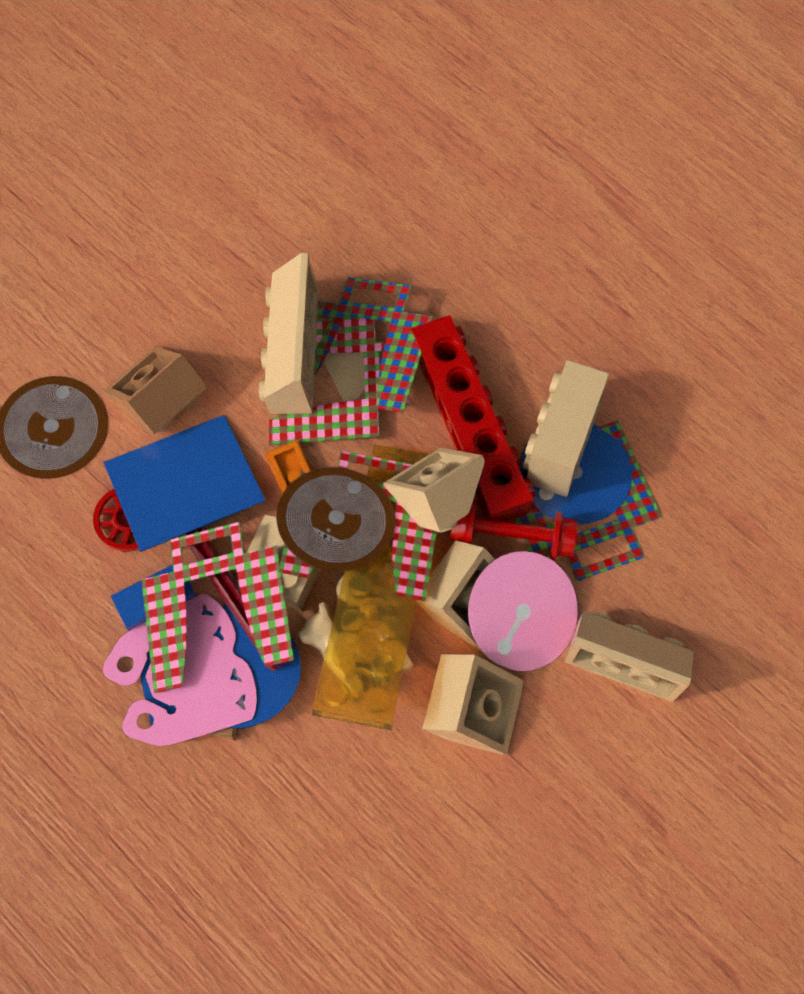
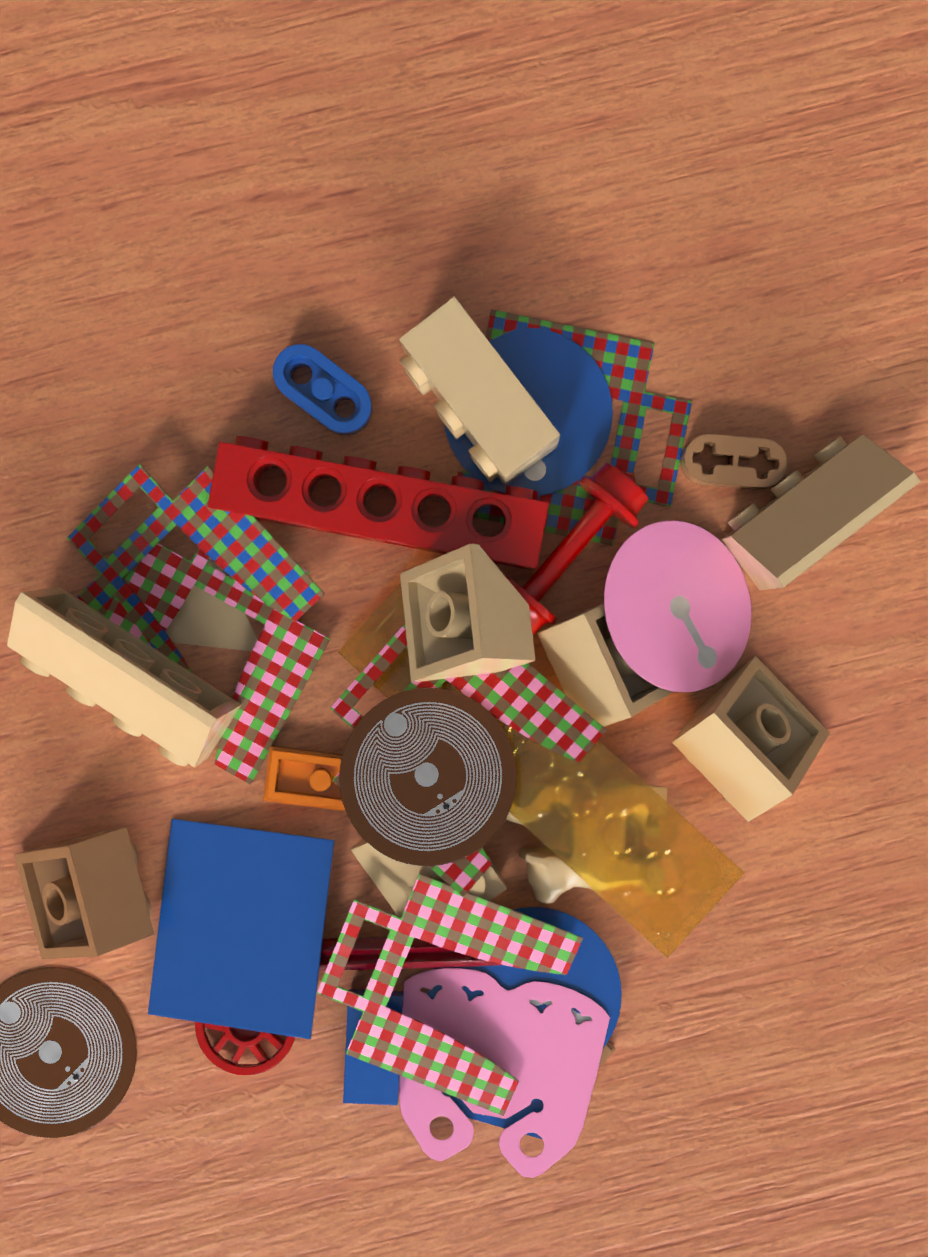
camera: 50 degrees left, 20 degrees up
(513, 358) = (323, 391): none -> blue plate
(634, 594) = (734, 448): none -> medium nougat beam

